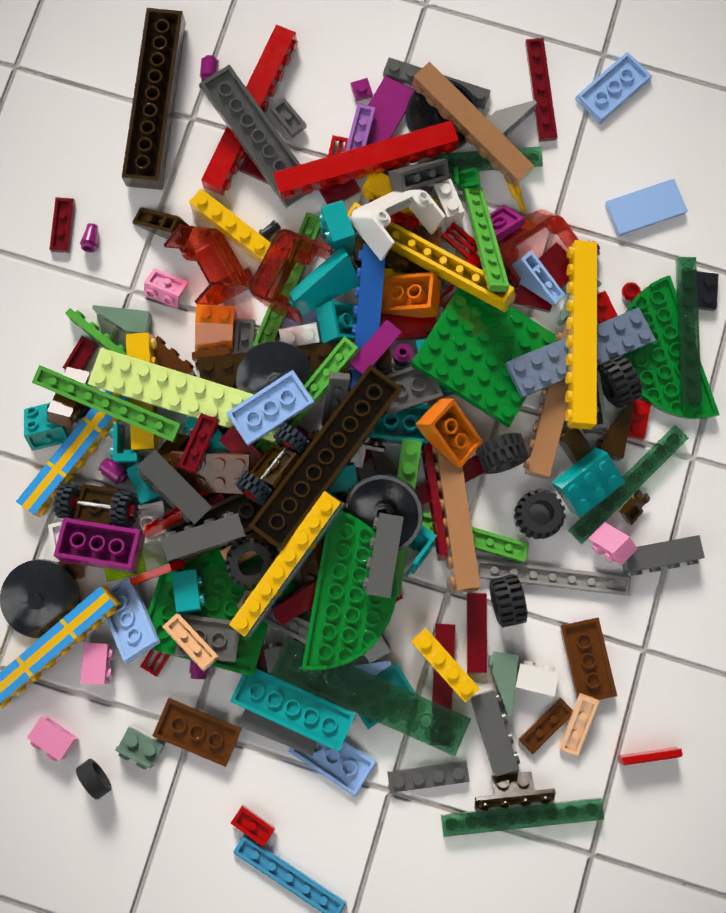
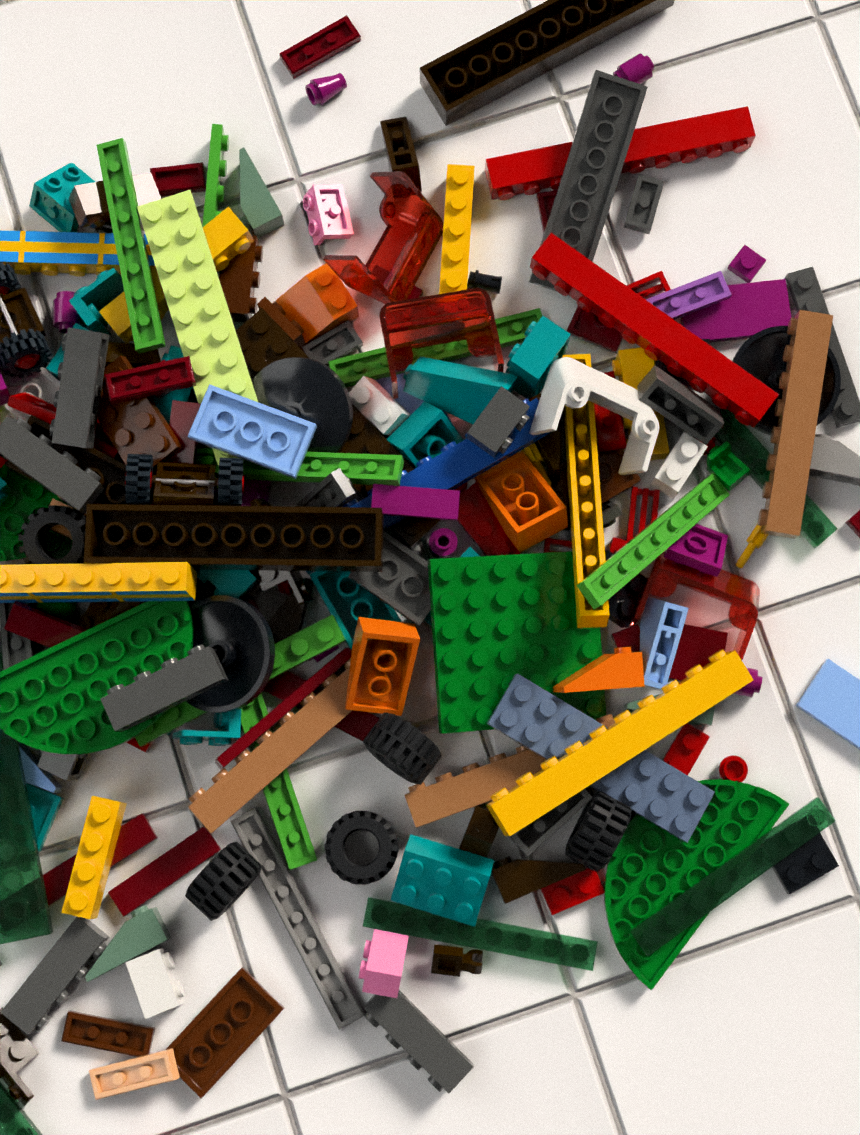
camera: 55 degrees right, 0 degrees up
(364, 271) = (498, 422): none -> dark grey brick
(536, 317) = (608, 671): none -> orange slope

